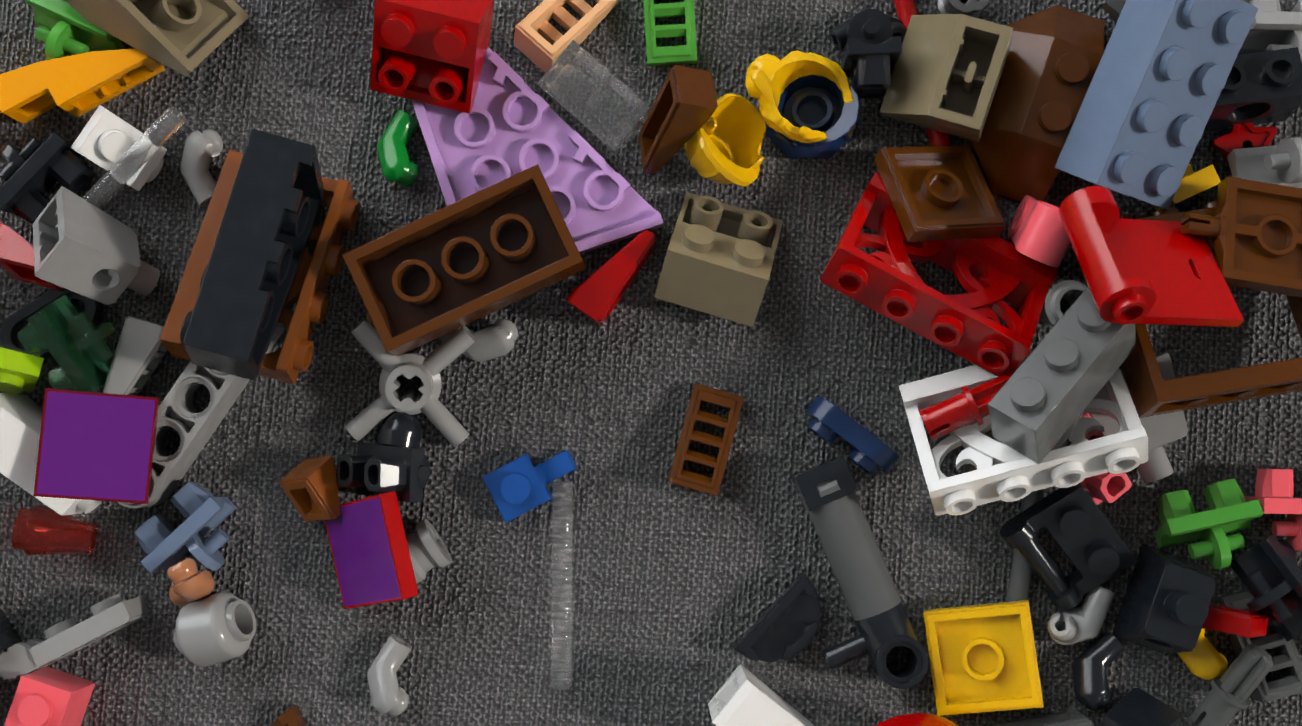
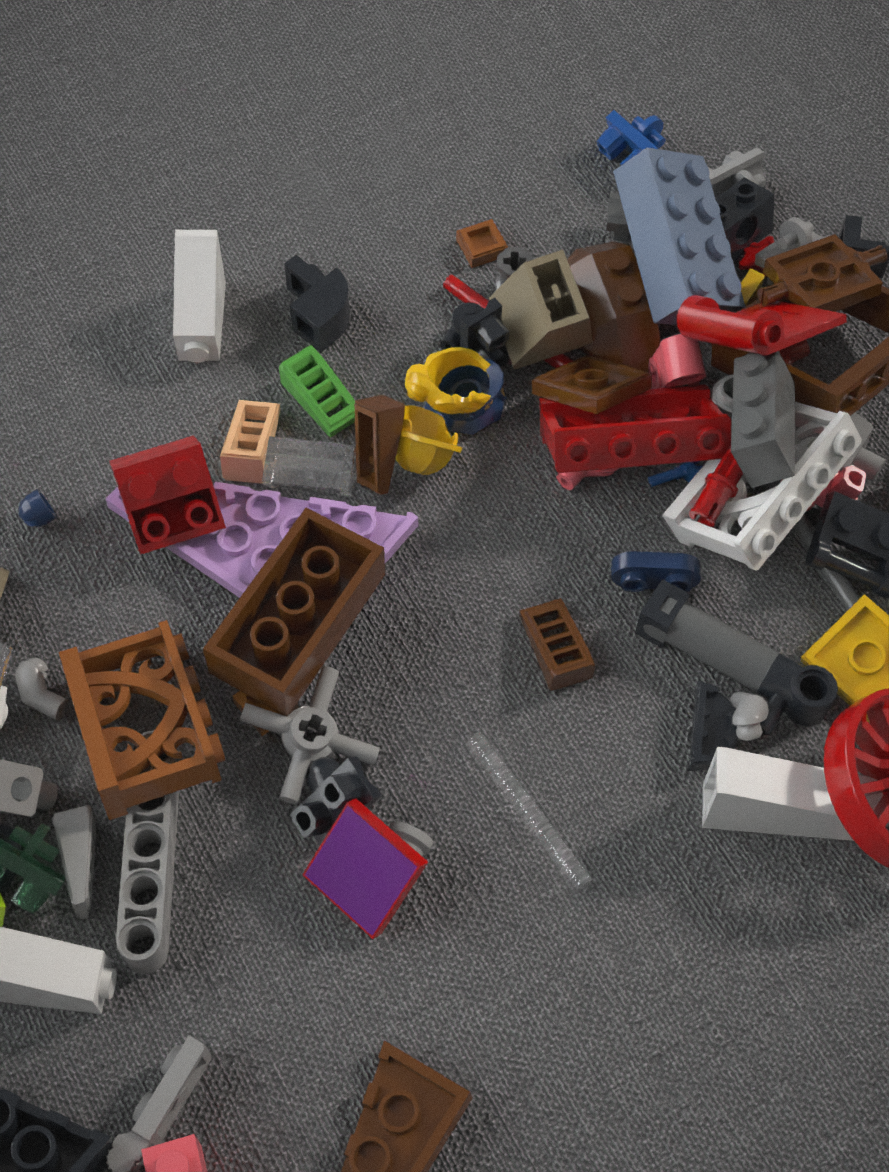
camera: 35 degrees left, 25 degrees down
(47, 532) = (89, 1035): clear red cone -> none
(96, 446) = (93, 916): dark purple tile -> none
(188, 582) = (239, 991): nougat arm -> none
(202, 515) = (209, 936): sand blue hips -> none
(214, 629) = (278, 1018): light grey head -> none
(255, 255) = (134, 689): black wedge -> none
(314, 489) = (288, 860): dark orange slope -> none
(382, 677) = (443, 971): light grey arm -> none
(393, 151) = (185, 593): green arm -> none
(490, 341) = (352, 672): light grey arm -> none
(523, 485) = (447, 757): blue plate -> none
(605, 287) = (405, 589): red slope -> none
(719, 259) = (475, 517): dark tan slope -> none
(825, 641) = (748, 714): none -> light grey arm

